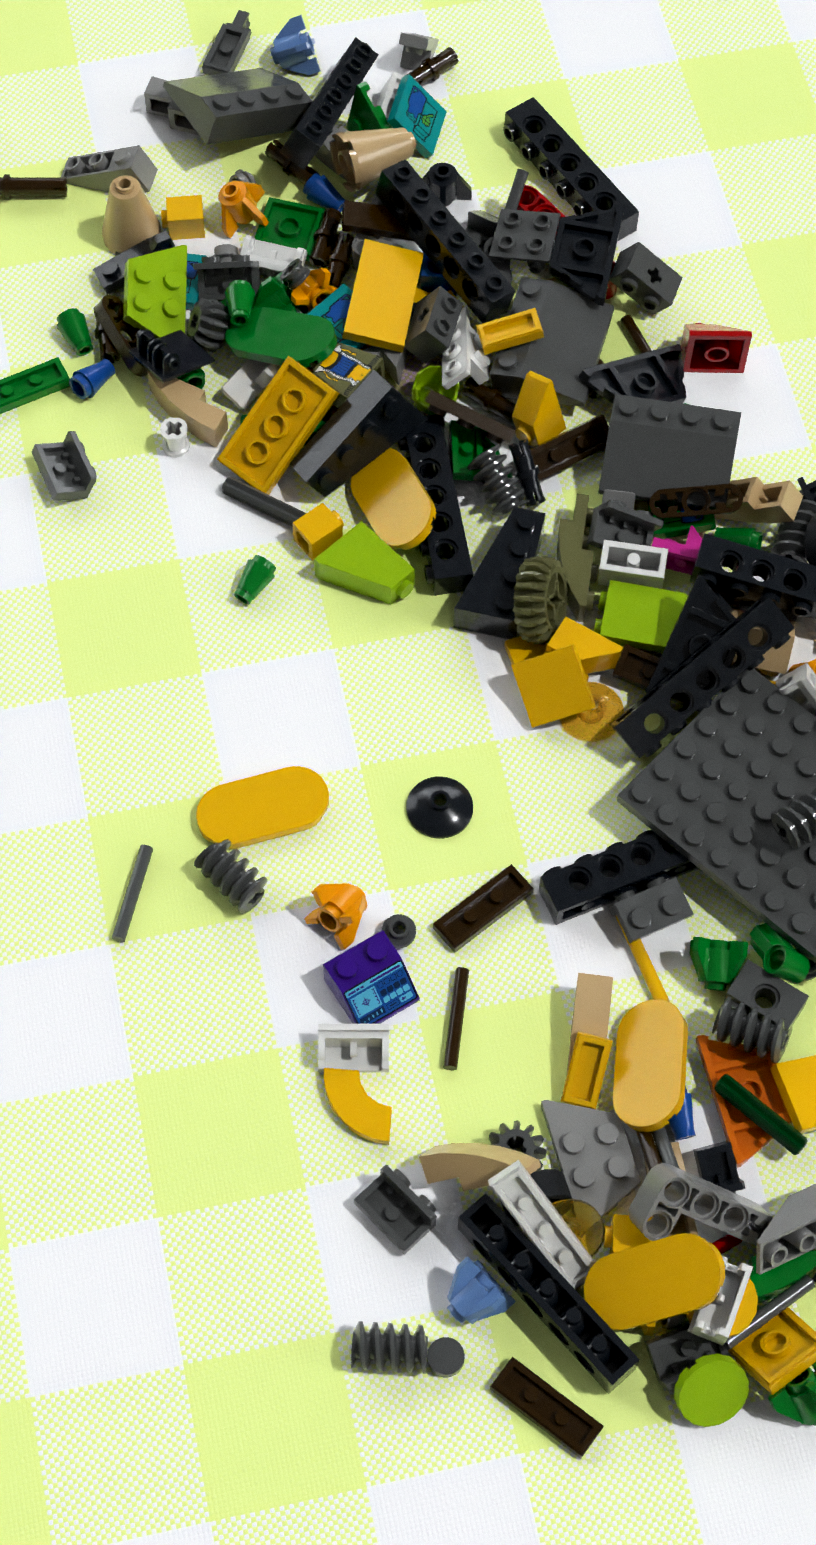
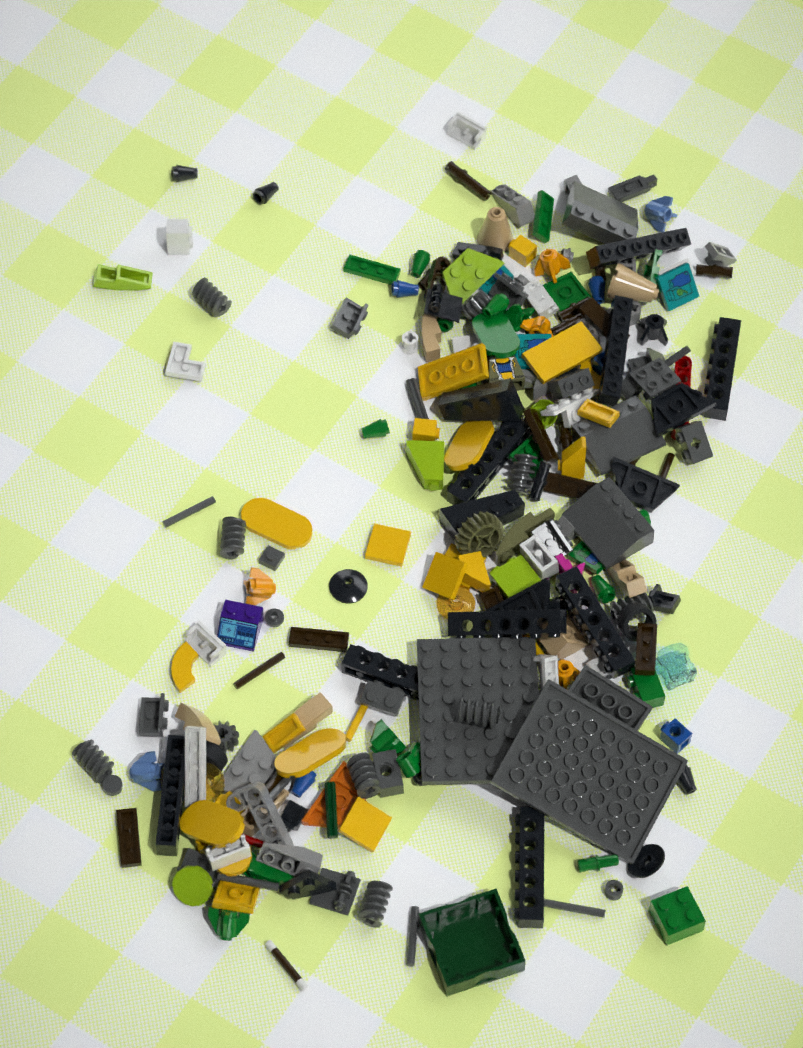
camera: 45 degrees right, 5 degrees down
(163, 158) = (543, 216): none -> green tile
(295, 273) = (535, 312): dark grey bush -> none
(307, 857) = (271, 558): none -> dark grey plate
(430, 711) = (388, 545): none -> yellow tile
(714, 348) = (688, 496): red slope -> none
(719, 492) = (599, 559): dark brown beam -> none

